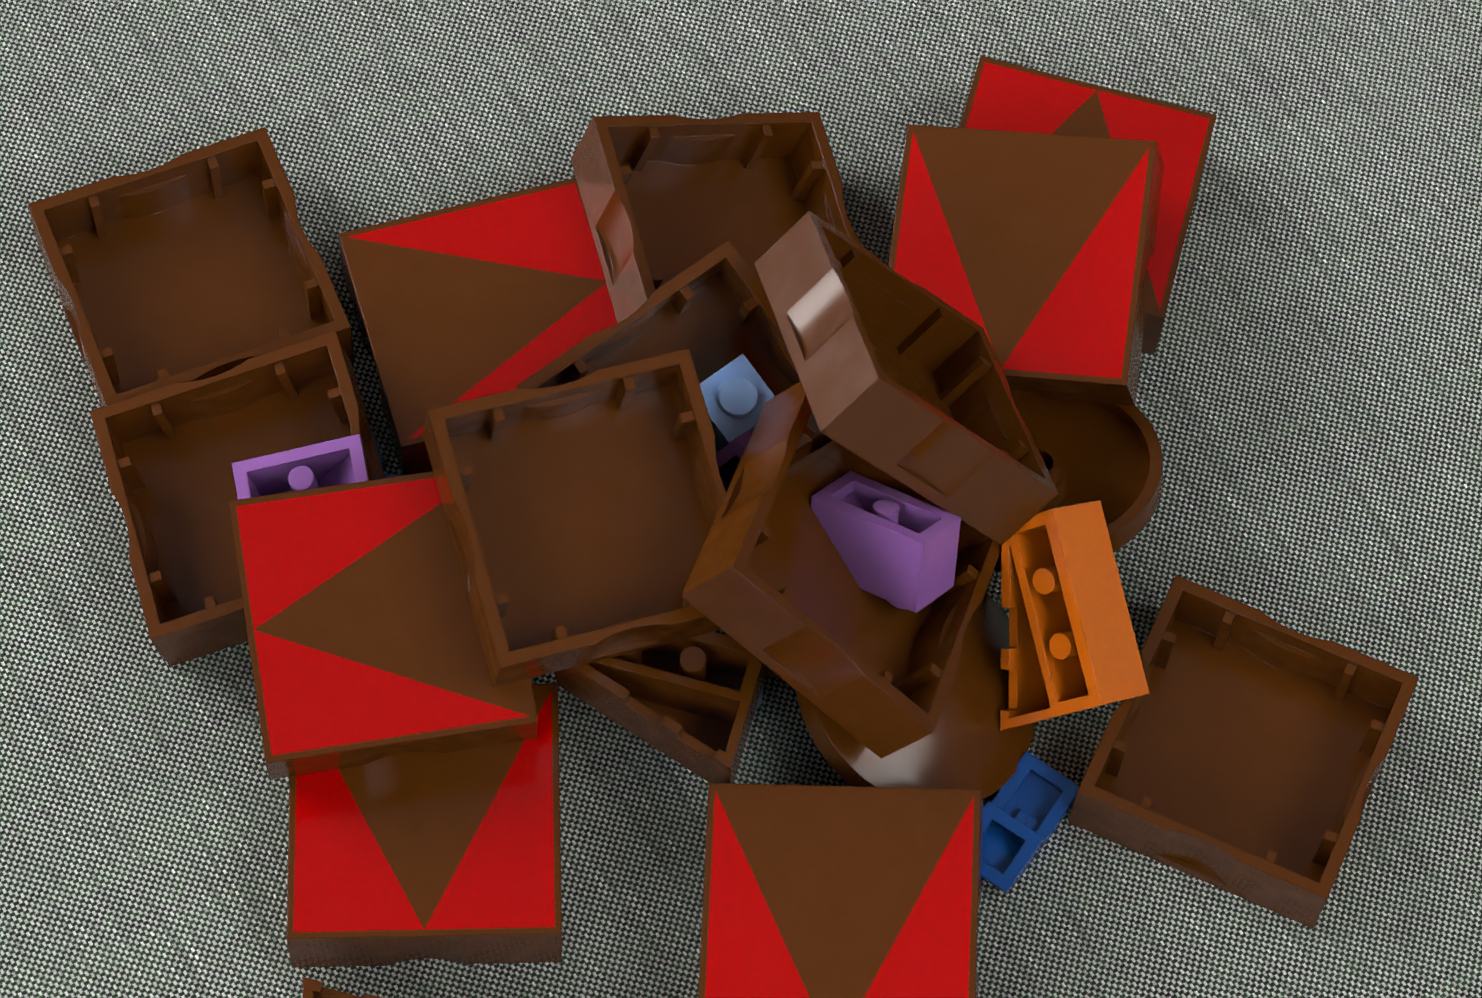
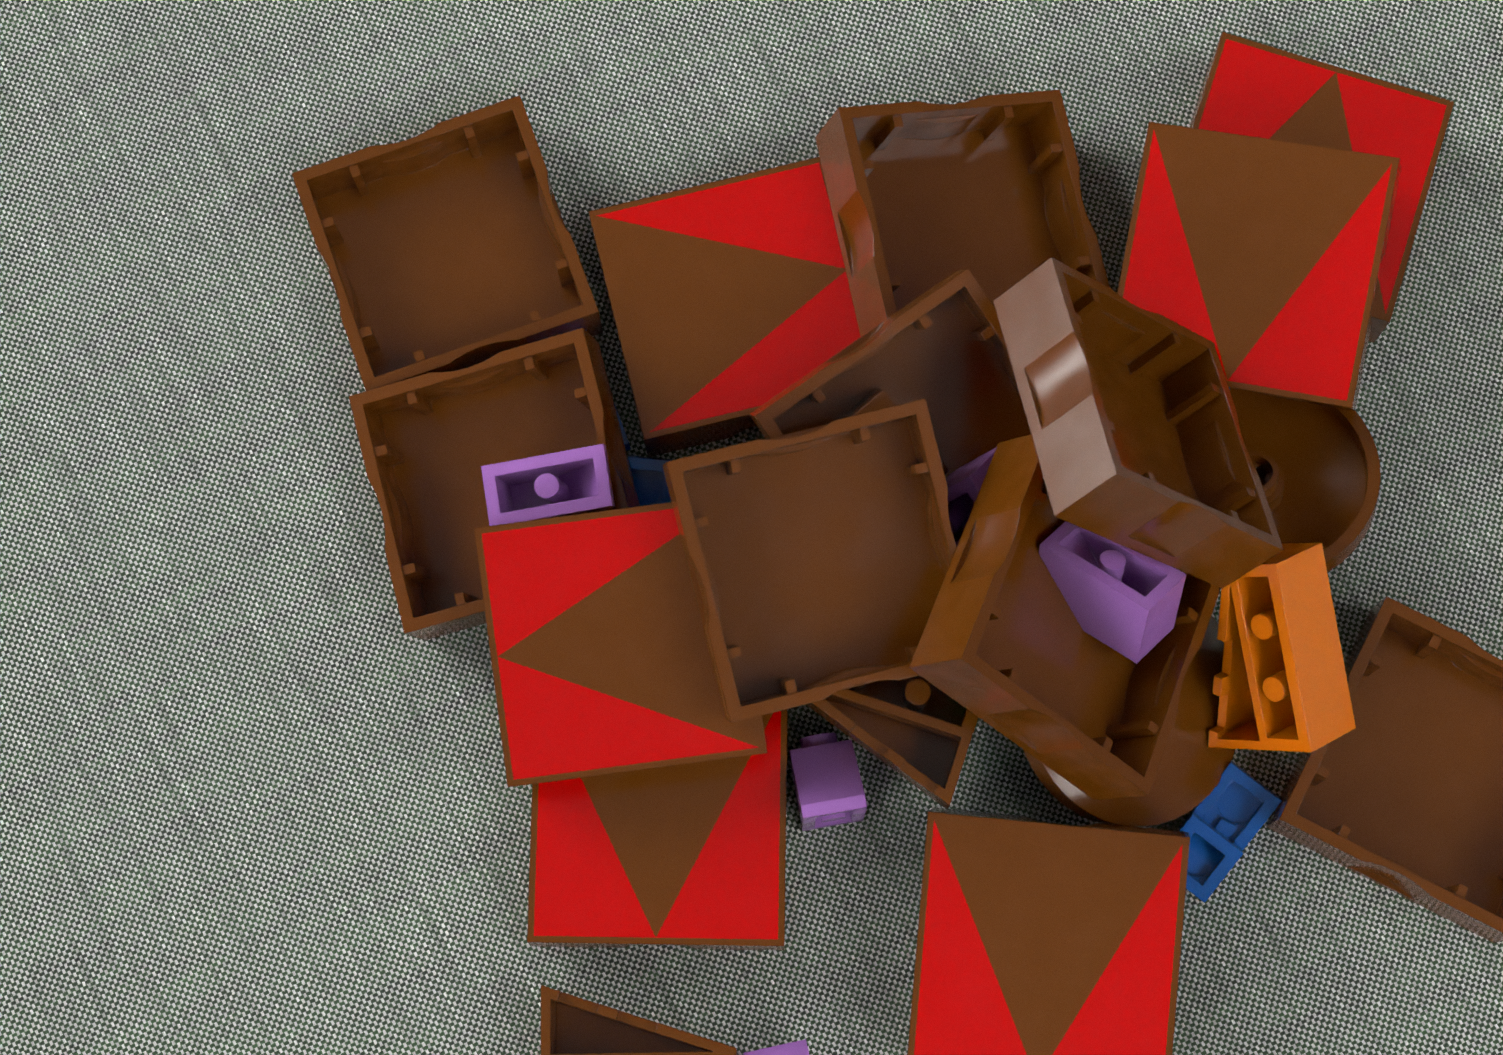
camera: 10 degrees right, 15 degrees up
(603, 785) = (827, 782): none -> medium lavender slope
(734, 399) = (966, 430): light blue brick -> none

